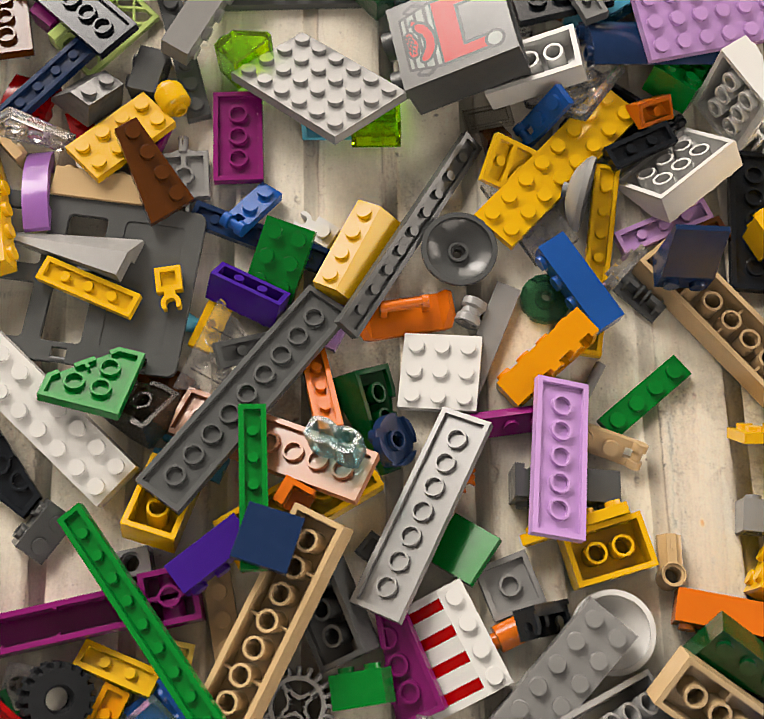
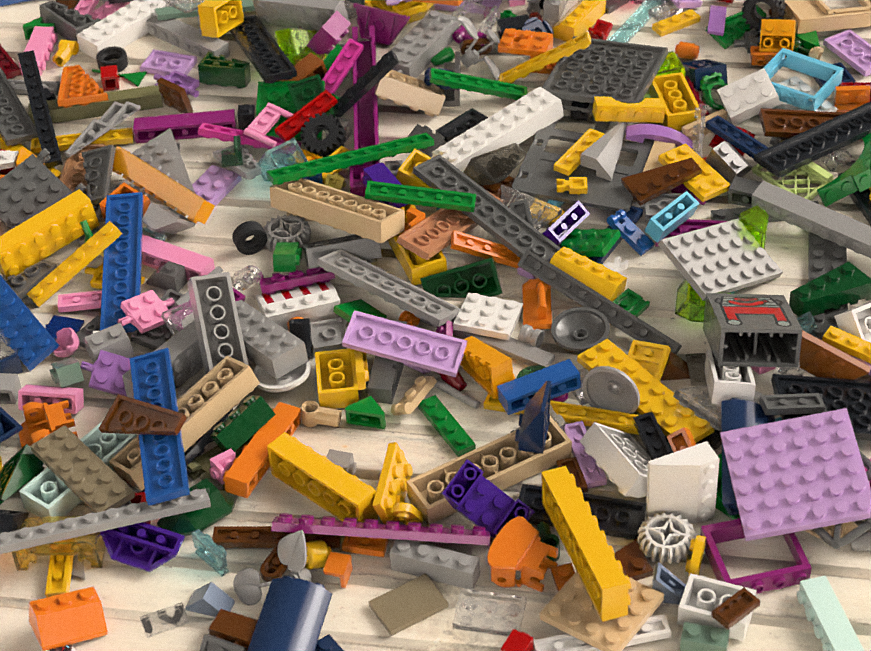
camera: 105 degrees right, 30 degrees down
(95, 384) = (508, 145): plate -> none
(172, 98) = (724, 197): yellow head -> none
(232, 151) = (671, 216): none -> medium azure brick
(267, 538) = (383, 191): dark blue tile -> none
(335, 441) = (438, 228): clear light blue brick -> none
(381, 437) = (445, 272): dark blue plate -> none
(392, 198) = (632, 302): none -> green plate
(544, 115) = (689, 380): blue plate -> none
(653, 501) = (366, 413): none -> green slope

